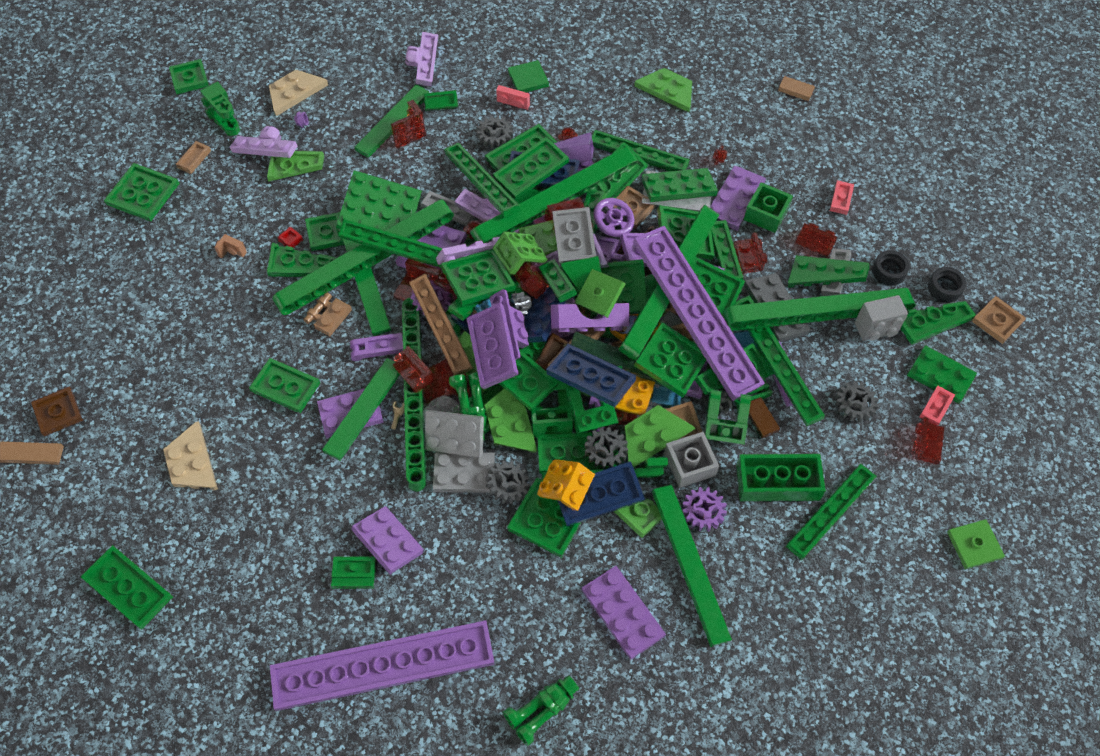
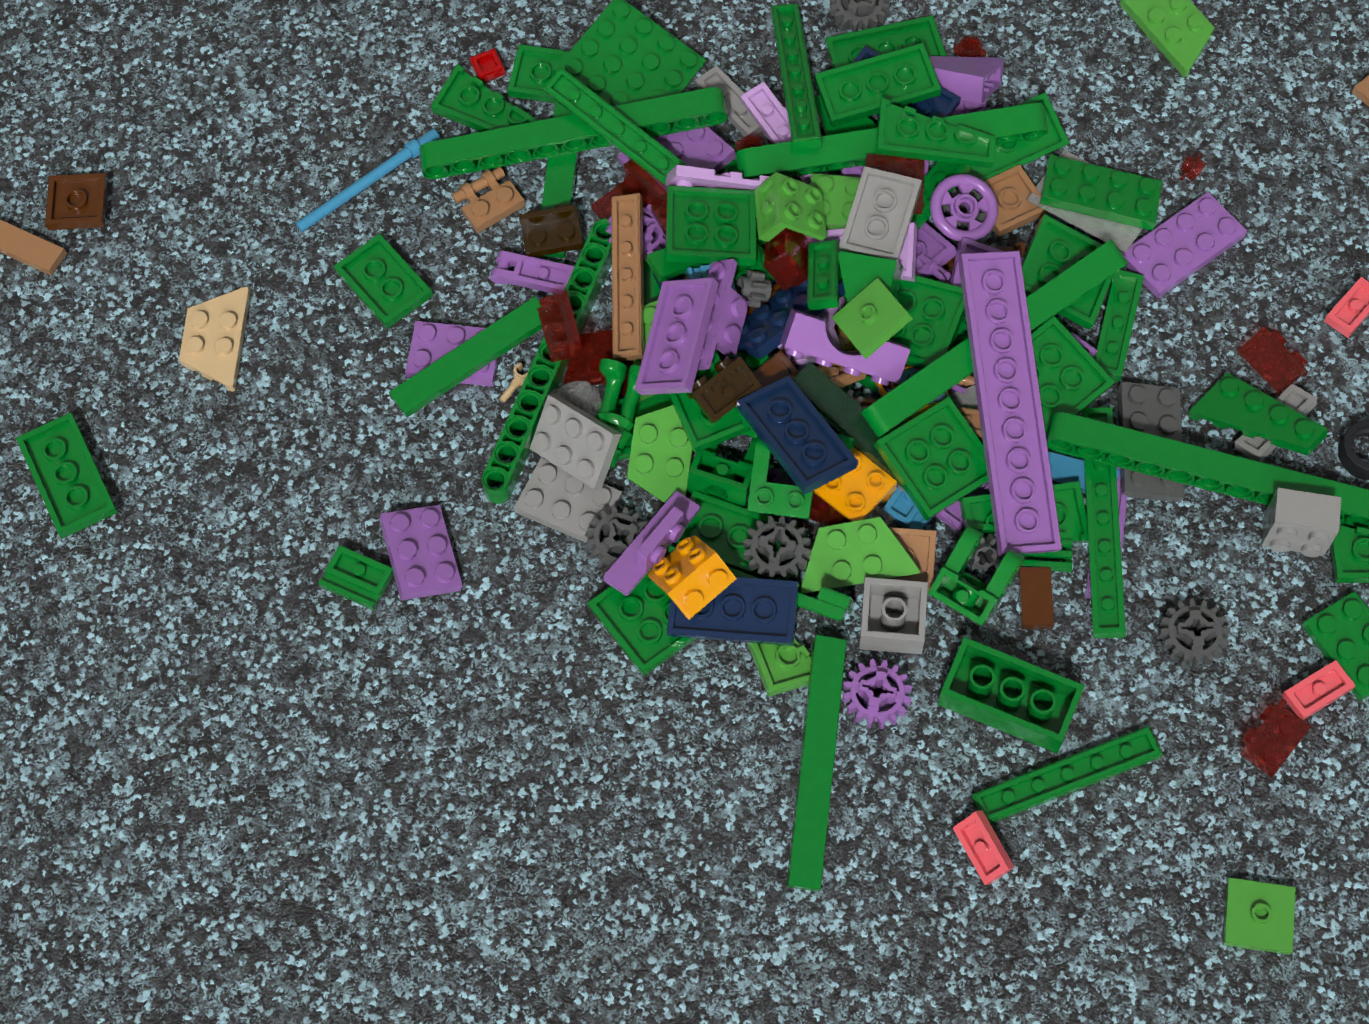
camera: 30 degrees right, 5 degrees up
(230, 245) = (396, 44): nougat bracket -> none
(266, 302) = (410, 151): none -> dark azure bar
(377, 317) = (551, 230): none -> dark brown bracket
(380, 665) = (339, 716): medium lavender plate -> none
(531, 475) = (651, 543): none -> medium lavender bracket
(534, 365) = (722, 389): none -> dark brown bracket
(553, 698) = (537, 859): green piece -> none
(568, 187) = (925, 138): none -> green wing
(623, 612) = (690, 787): medium lavender plate -> none
(650, 155) = (1074, 120): green tile -> none
(750, 254) = (1153, 344): clear red bracket -> none
(768, 207) = (1220, 280): green brick -> none
(810, 572) = (983, 847): none -> coral plate

